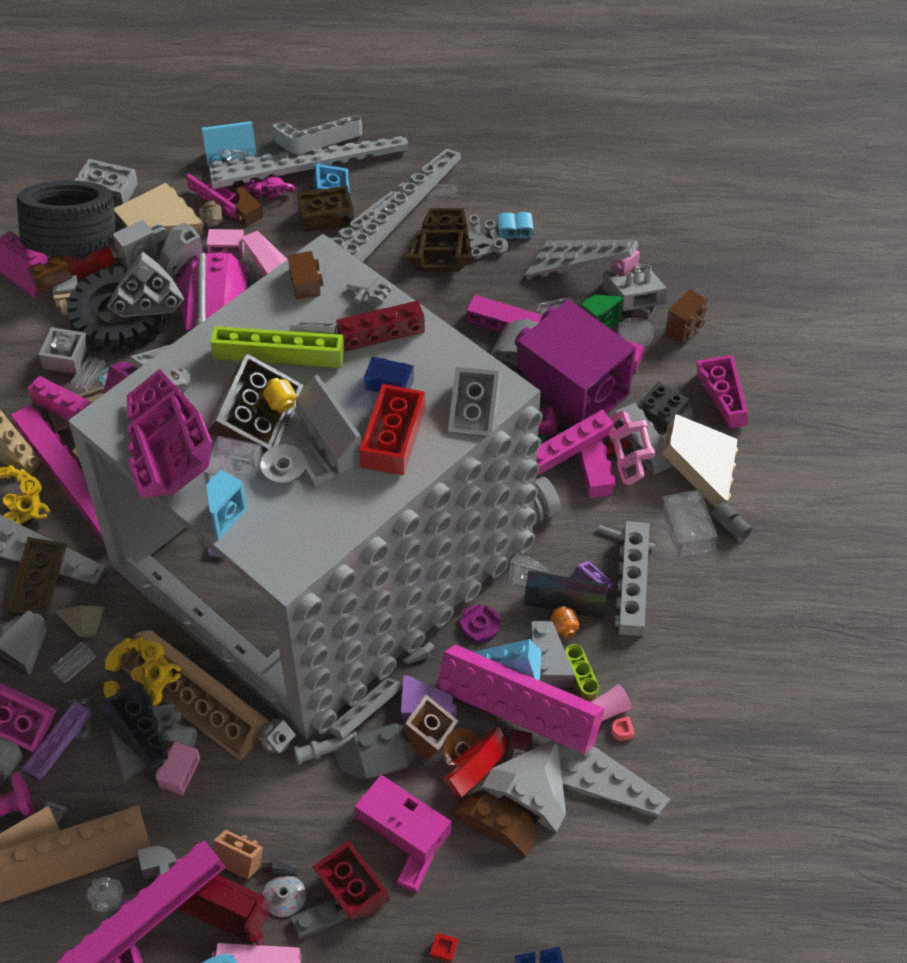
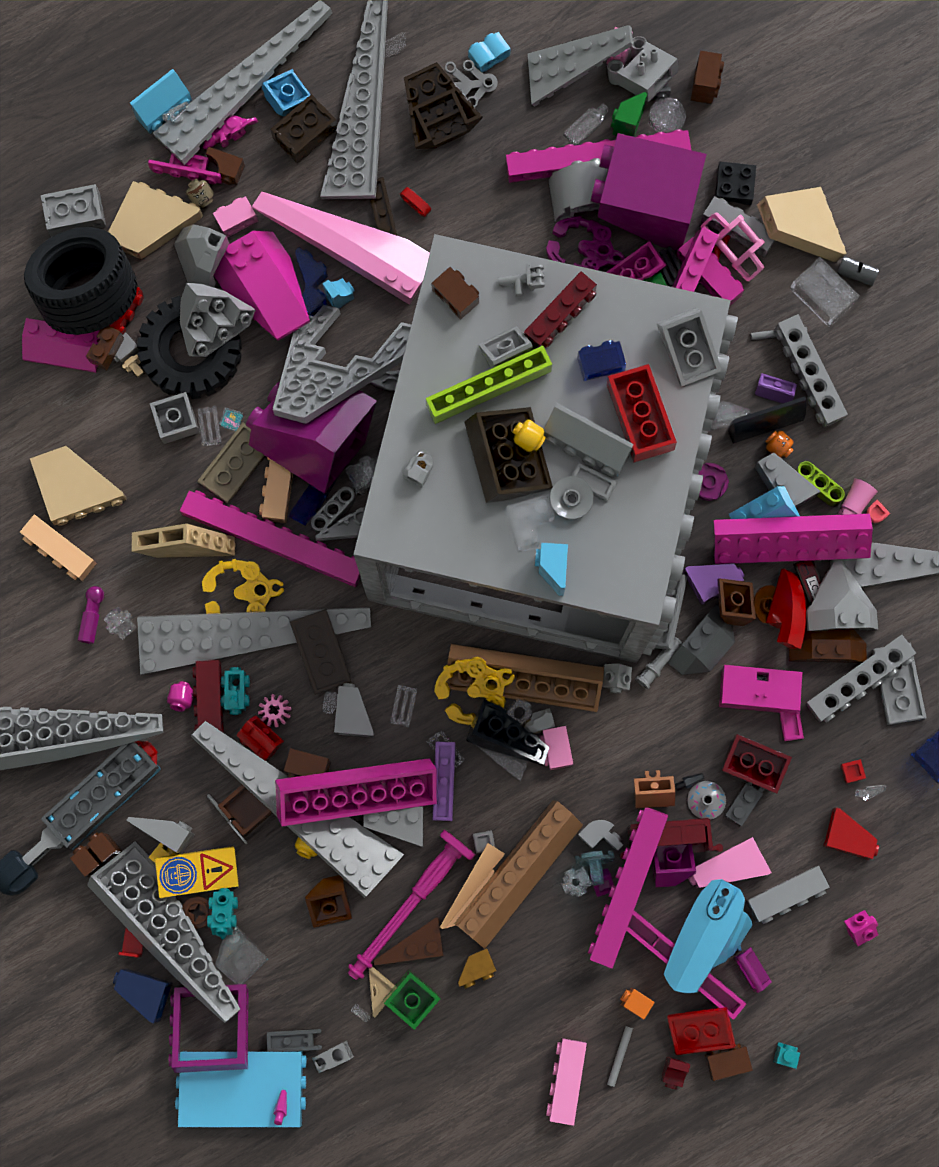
camera: 30 degrees left, 25 degrees up
(56, 398) = (219, 473): dark pink brick -> none
(63, 341) = (174, 412): clear tile -> none
(82, 619) = (384, 665): dark tan slope -> none
(131, 882) = (595, 861): none -> clear light blue tile
(137, 239) = (157, 264): light grey brick -> none
(166, 437) = (460, 529): dark pink wedge -> none
(201, 288) = (289, 326): light grey bar -> none
(205, 928) = (673, 864): none -> magenta slope
(318, 136) = (231, 62): light grey beam -> none
(496, 856) = (898, 646): none -> light grey brick
(545, 893) = (901, 693): none -> light grey tile
(724, 387) = (780, 137): dark pink wedge -> none

